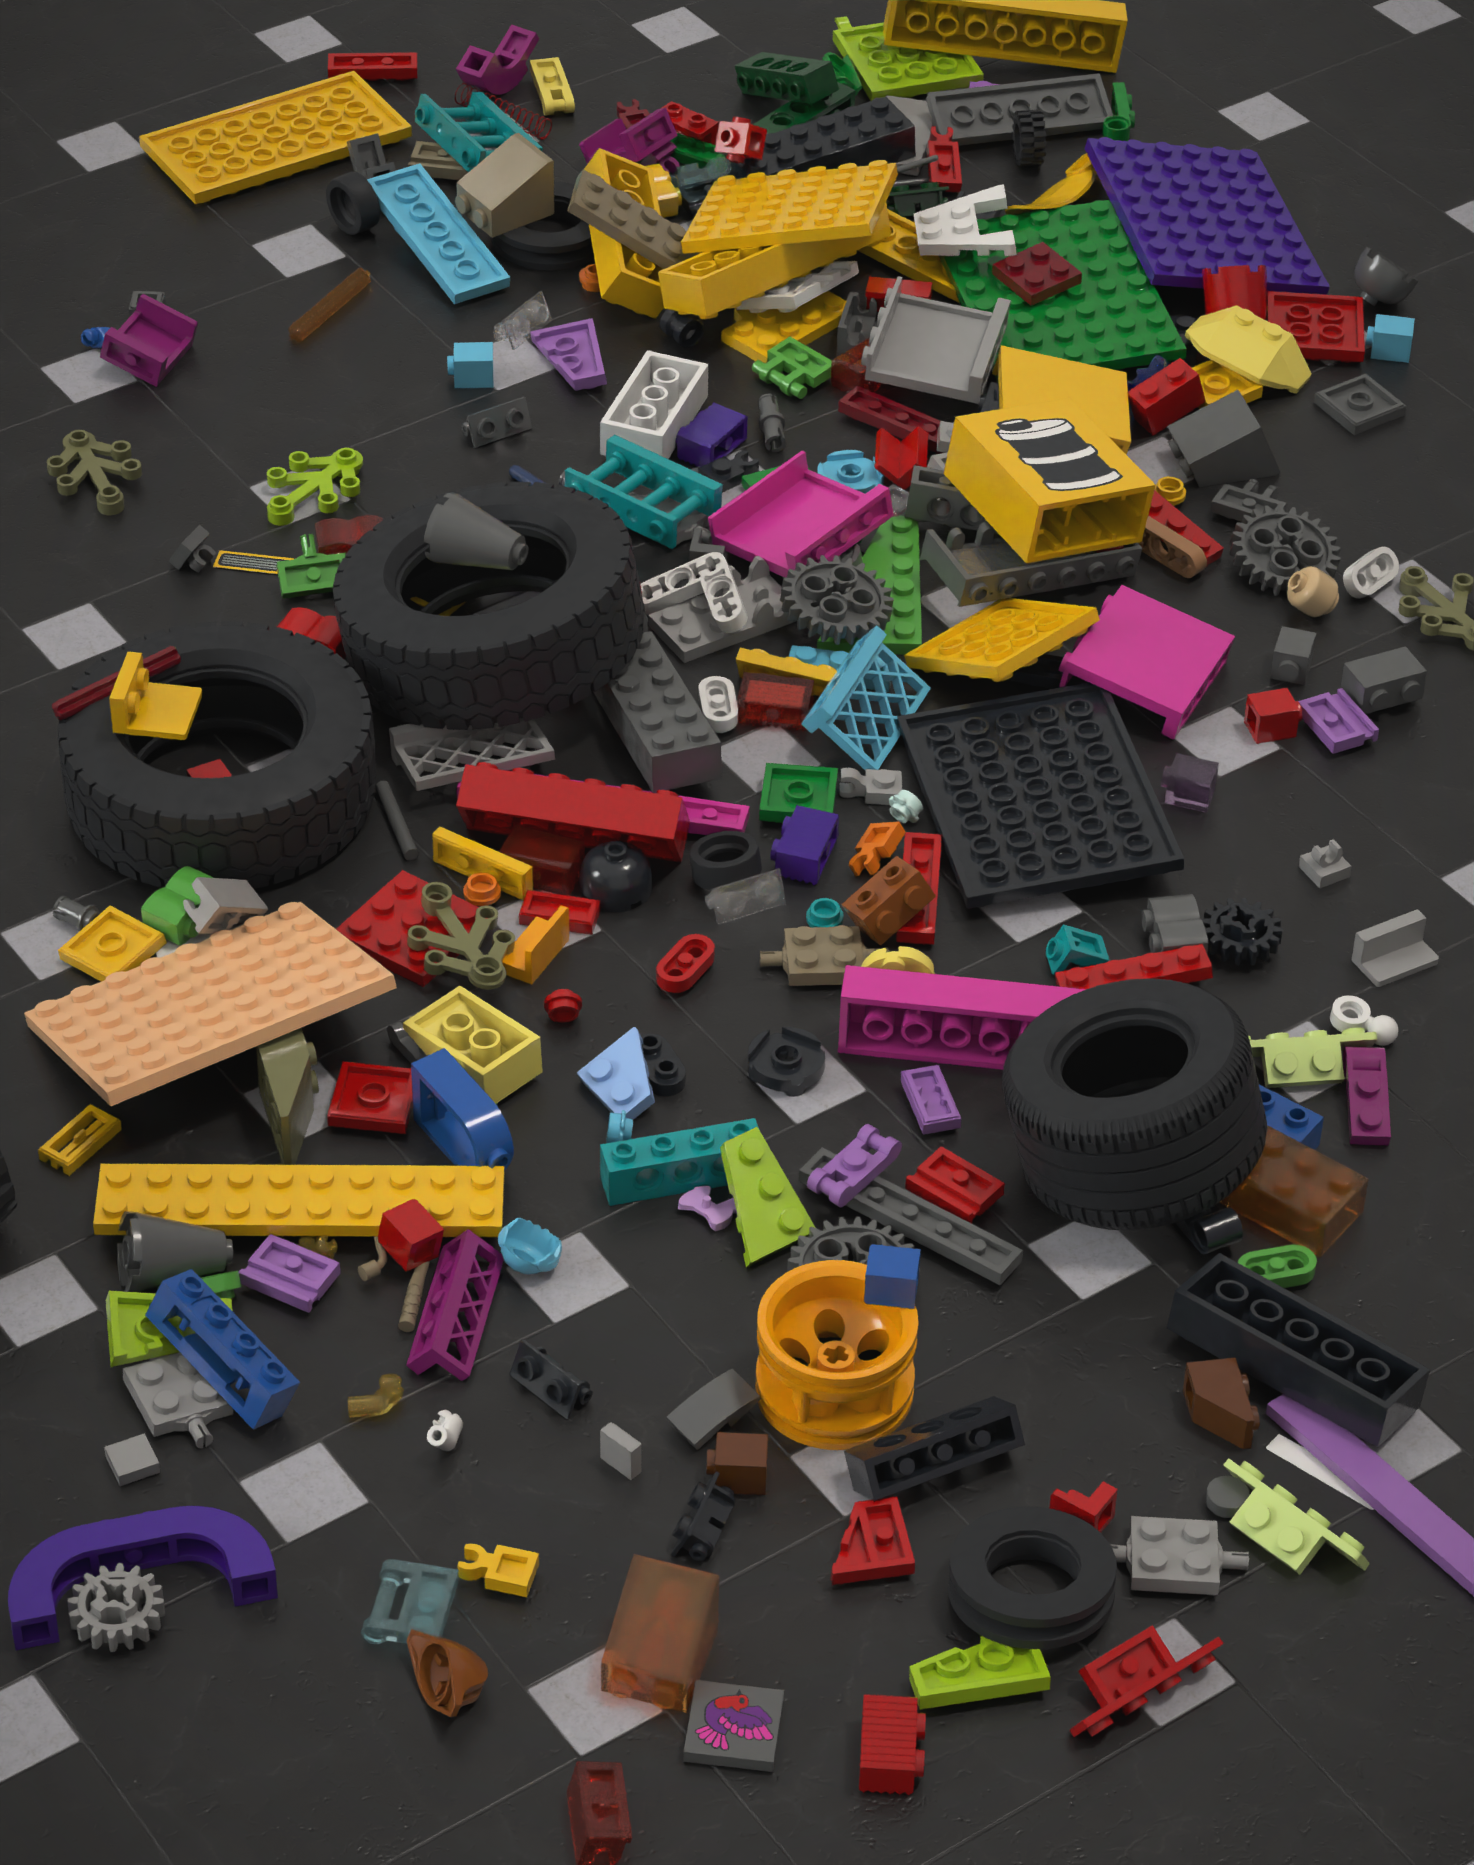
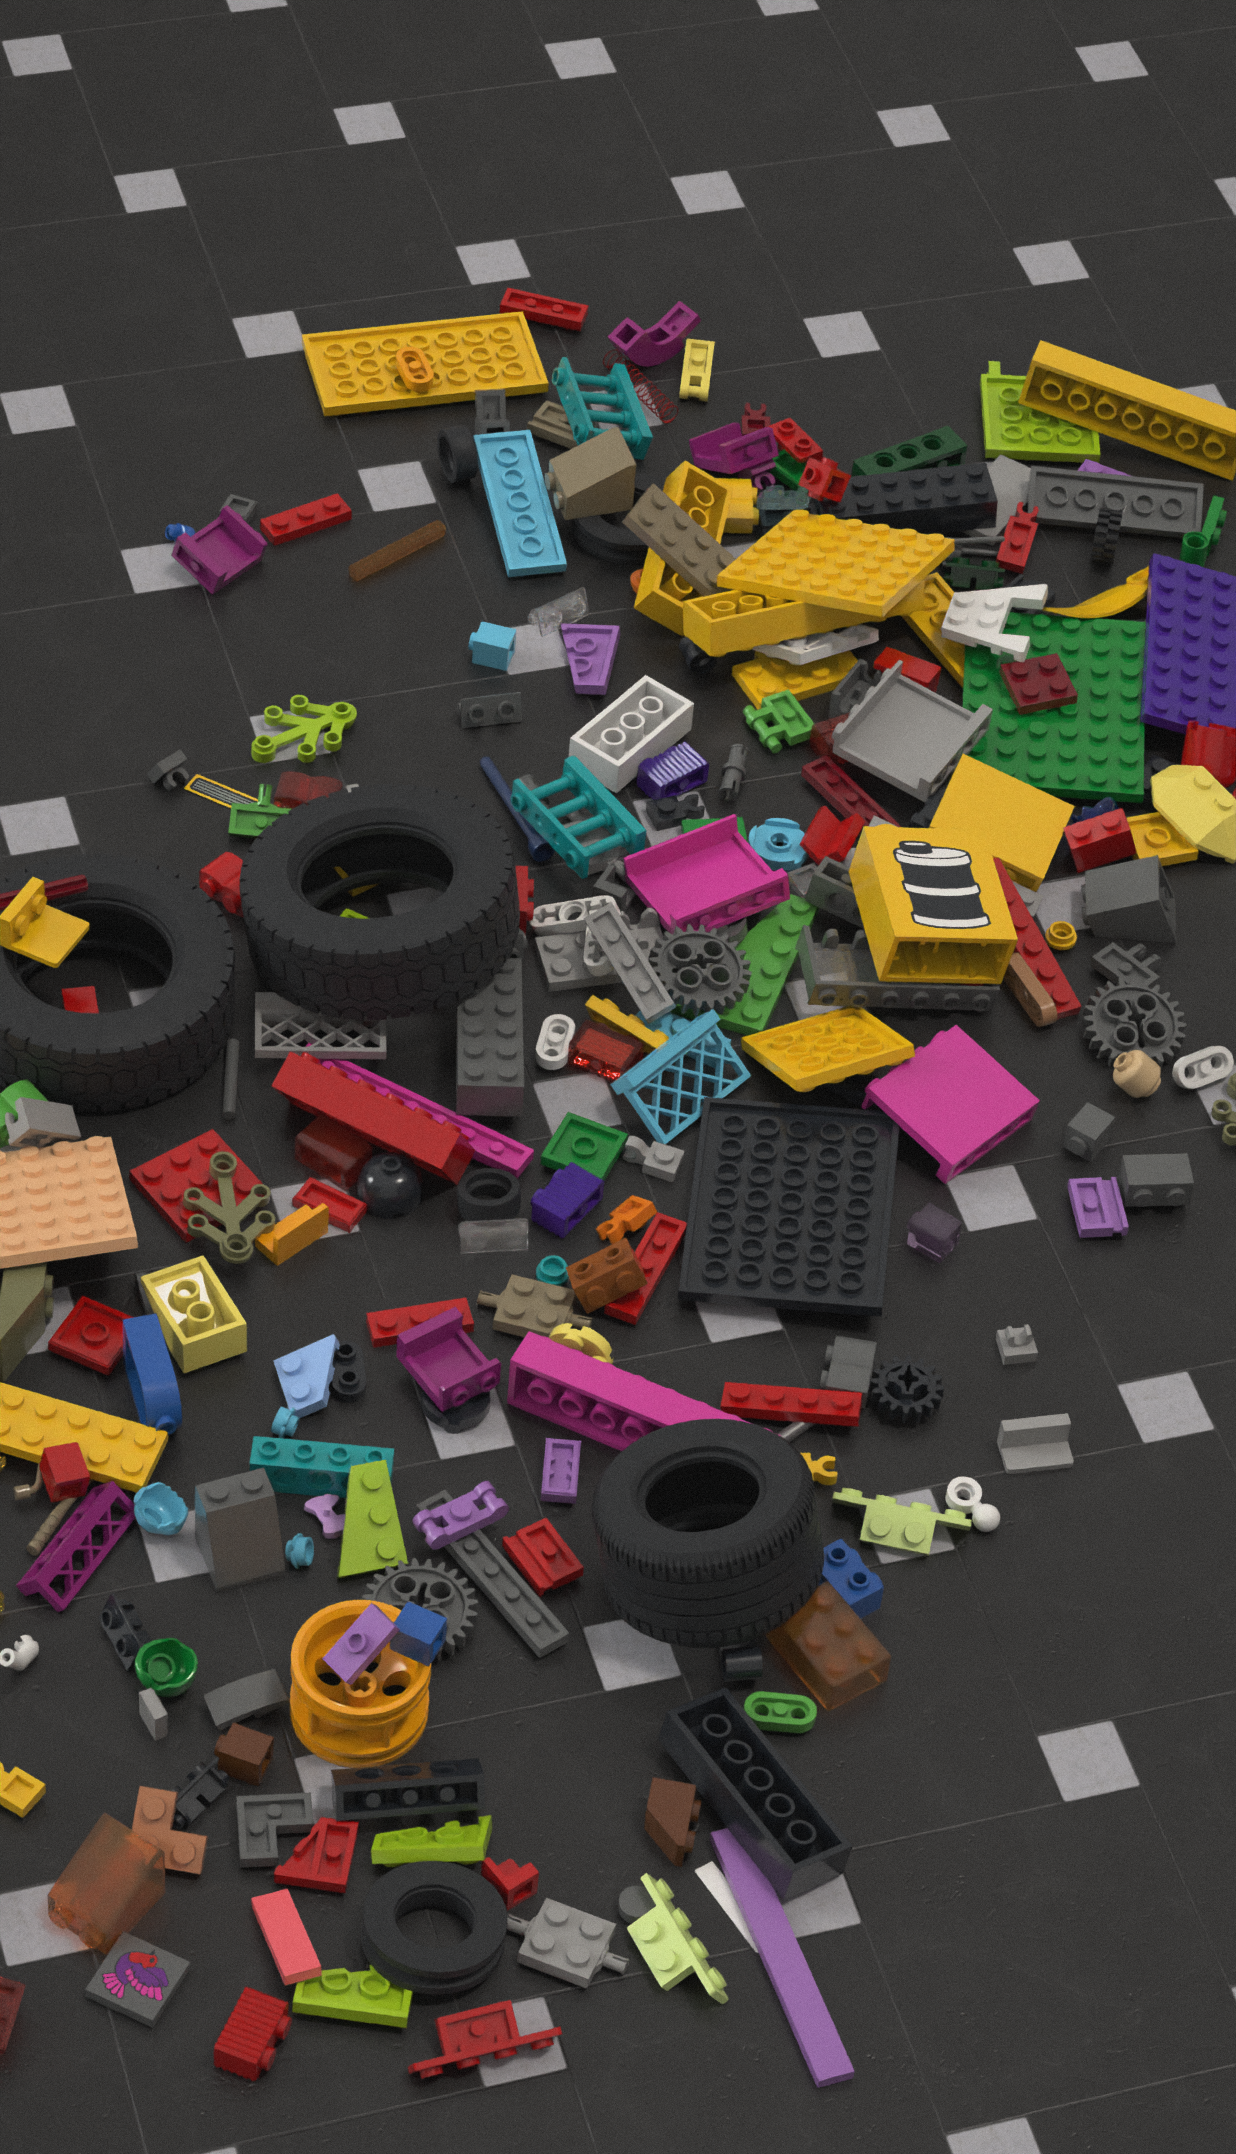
camera: 15 degrees right, 5 degrees up
(81, 446) = (120, 639): olive plant -> none
(223, 297) = (305, 519): none -> red plate
(273, 139) = (414, 369): none -> light orange plate
(471, 537) = (368, 842): dark grey cone -> none
(472, 858) = (281, 1141): yellow tile -> none
(482, 889) = (271, 1166): orange plate -> none
(563, 1005) = (289, 1294): red plate -> none
(615, 1397) = (166, 1667): none -> green hair
(628, 1240) = (239, 1529): none -> dark grey slope
(678, 1543) = (154, 1822): none -> nougat plate
(685, 963) = (406, 1285): red plate -> none
(696, 1248) = (300, 1550): none -> medium azure plate
(710, 998) = (387, 1324): none -> red plate
(764, 1023) = (446, 1360): none -> magenta panel
(768, 605) = (630, 963): none -> light grey plate
(786, 77) = (907, 418): dark green brick -> none
(792, 1525) = (264, 1817): none -> dark grey plate
(839, 1301) = (361, 1643): none -> medium lavender plate
(844, 71) = (968, 422): green hinge -> none
(877, 1633) = (286, 1937): none -> coral tile
(905, 807) = (671, 1187): light aqua plate -> none
(1000, 1490) = (445, 1844): none -> lime wing
(1076, 947) = (753, 1364): teal bracket -> none
(1272, 715) = (1040, 1186): red brick -> none
(1367, 1095) = (939, 1575): magenta plate -> none

